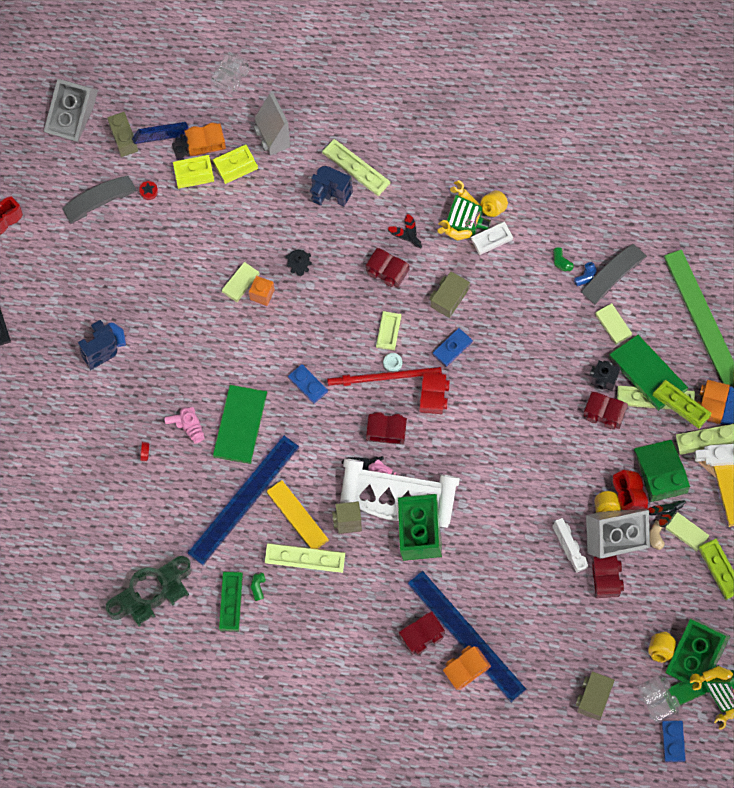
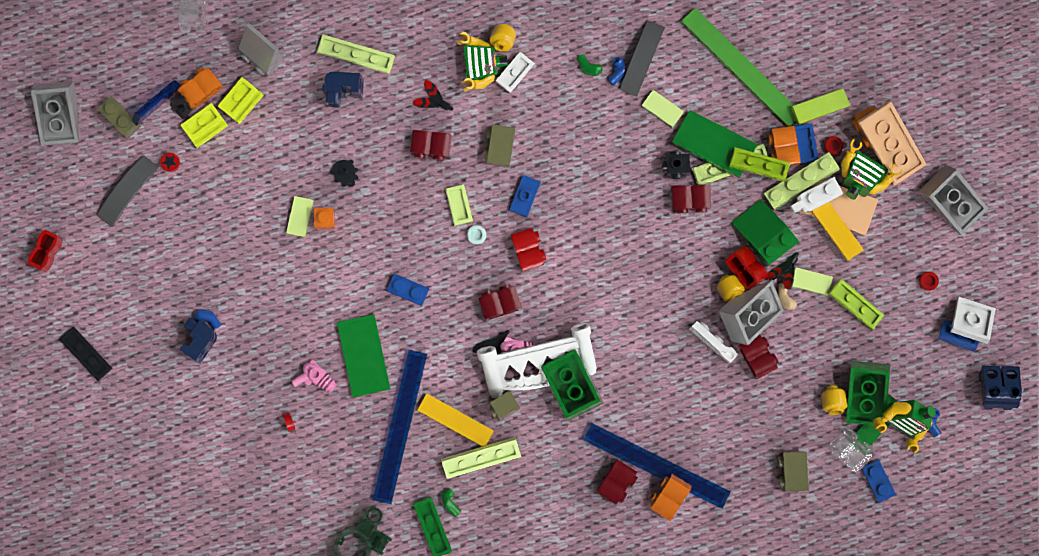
camera: 25 degrees left, 15 degrees up
(347, 380) = (443, 270): red bar -> none

